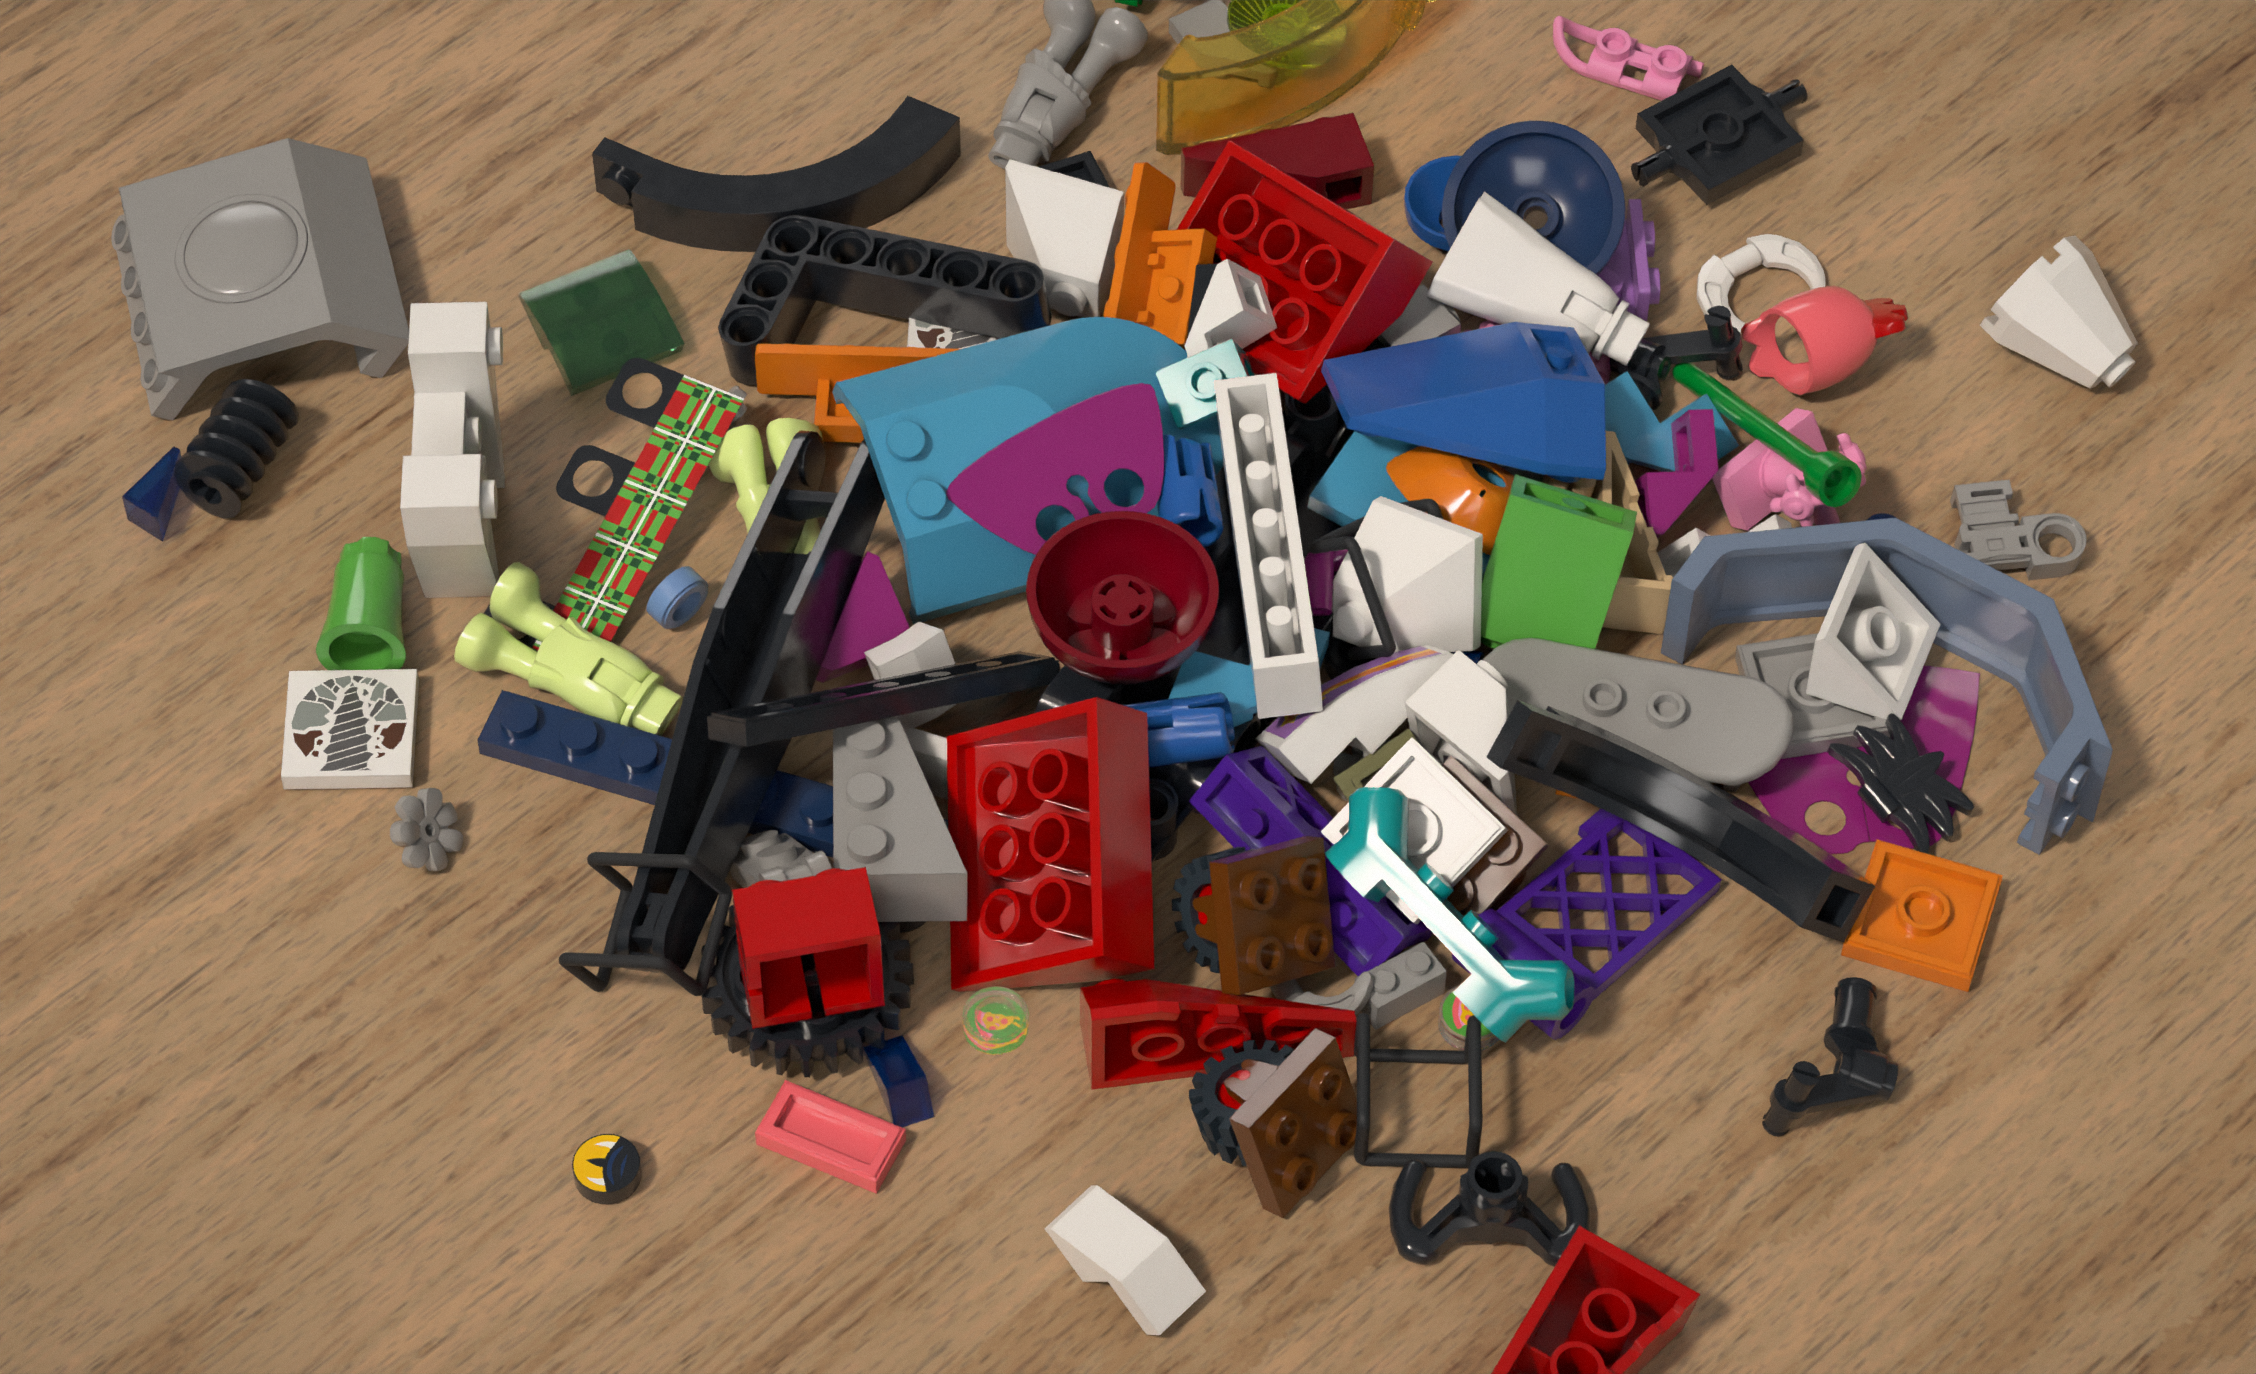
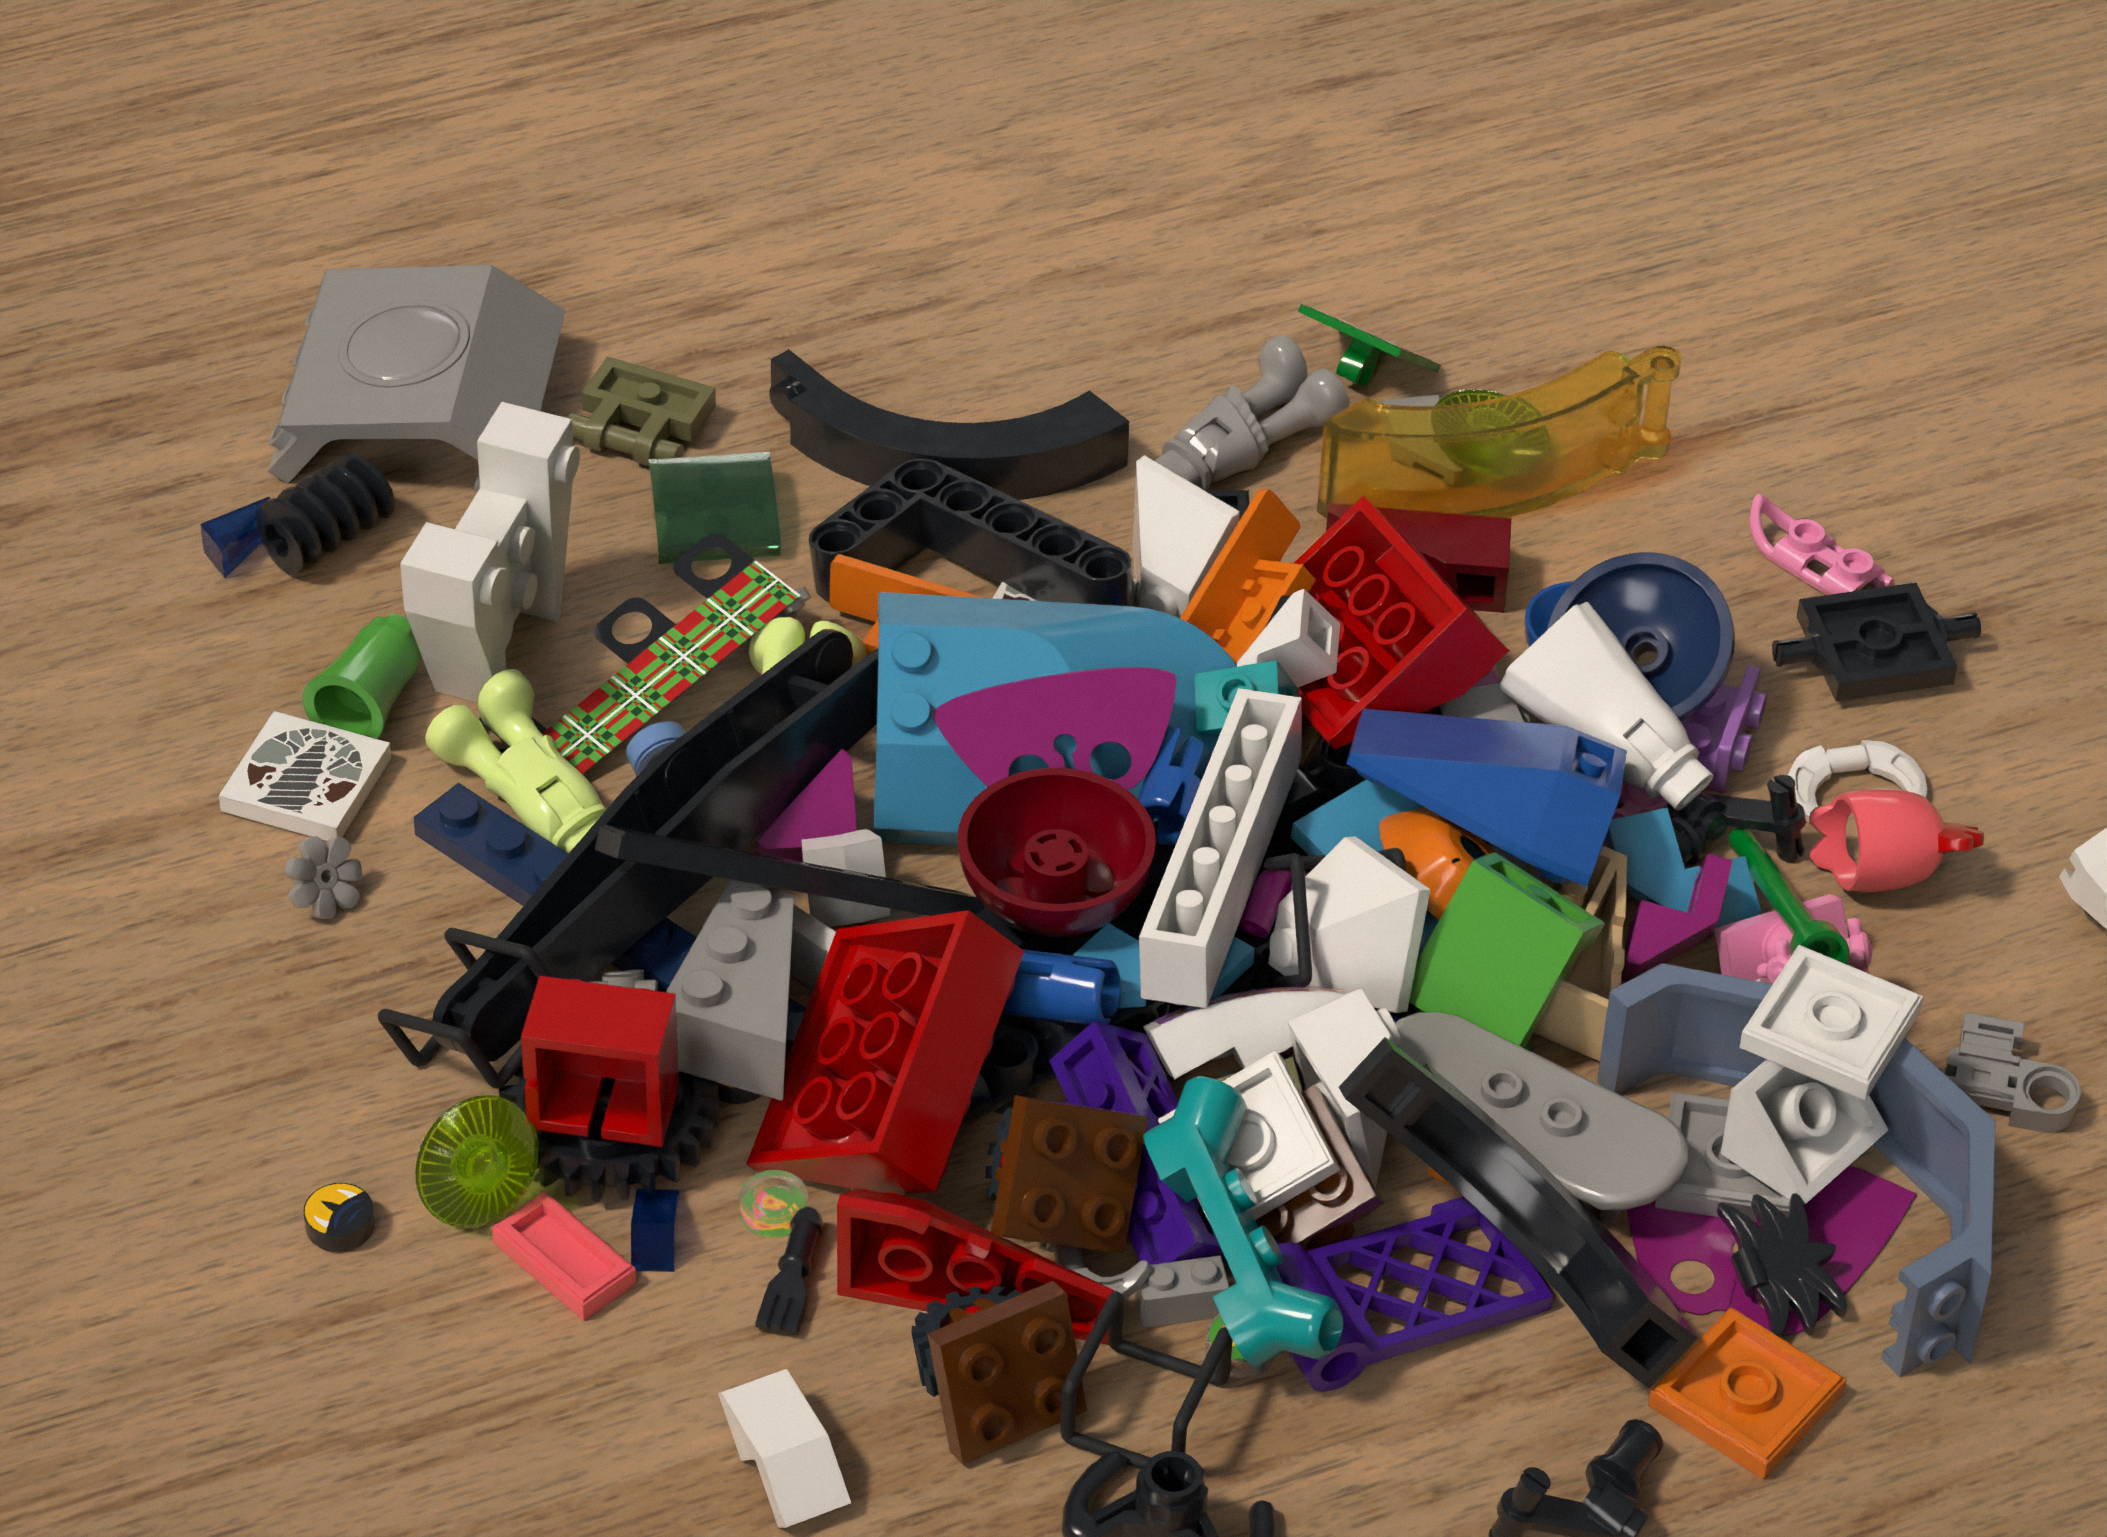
camera: 20 degrees right, 10 degrees down
(483, 227) = (646, 399): none -> olive plate
(686, 1070) = (461, 1147): none -> clear neon green dish
(1049, 1105) = (786, 1293): none -> black piece
(1878, 549) = (1831, 1022): none -> white tile

